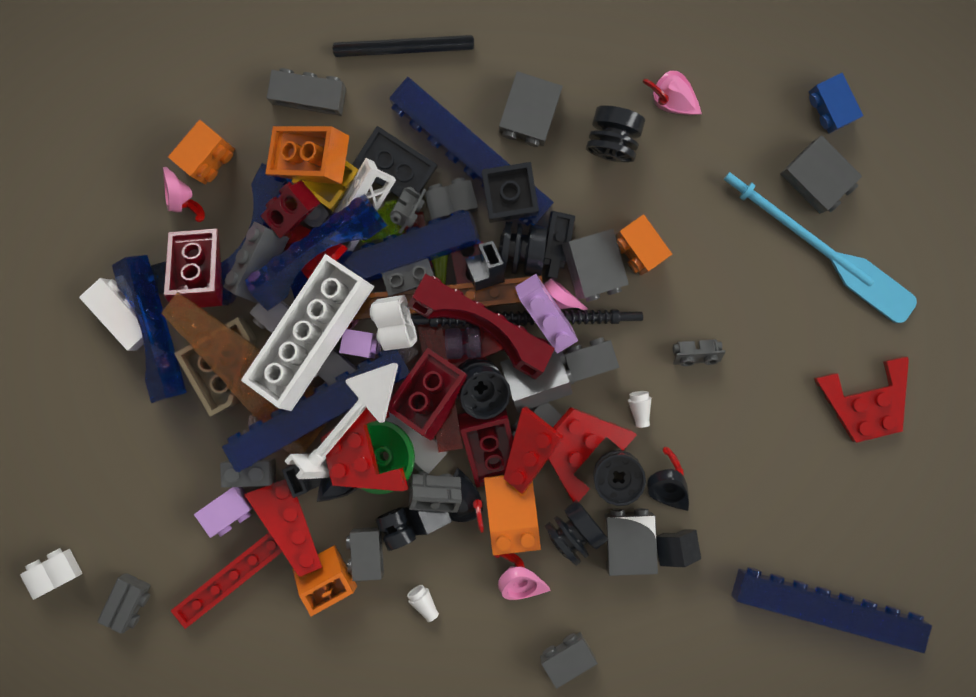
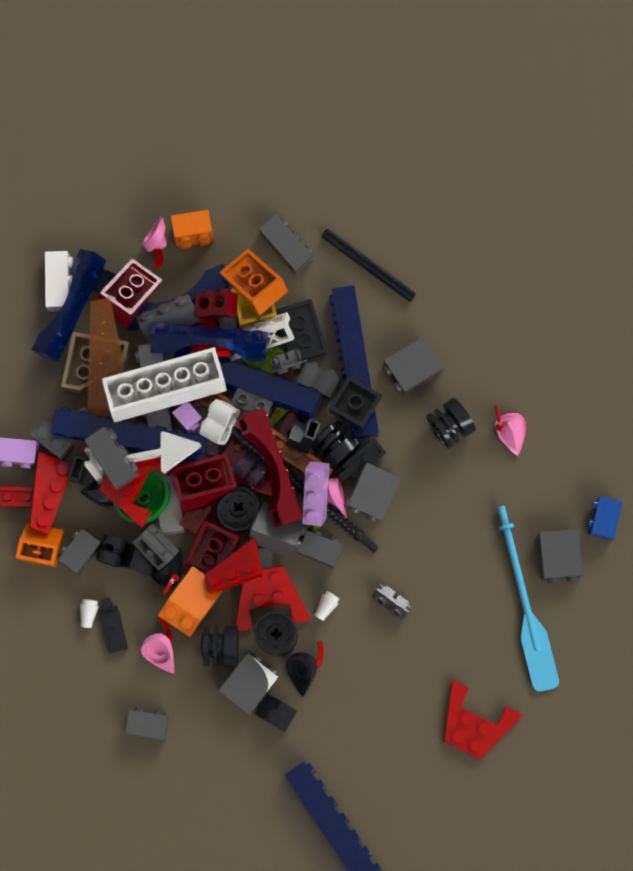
camera: 45 degrees right, 10 degrees down
(319, 448) = (112, 457): none -> dark grey brick
(458, 596) = (113, 627): none -> black hinge
(642, 245) = (411, 502): orange brick -> none

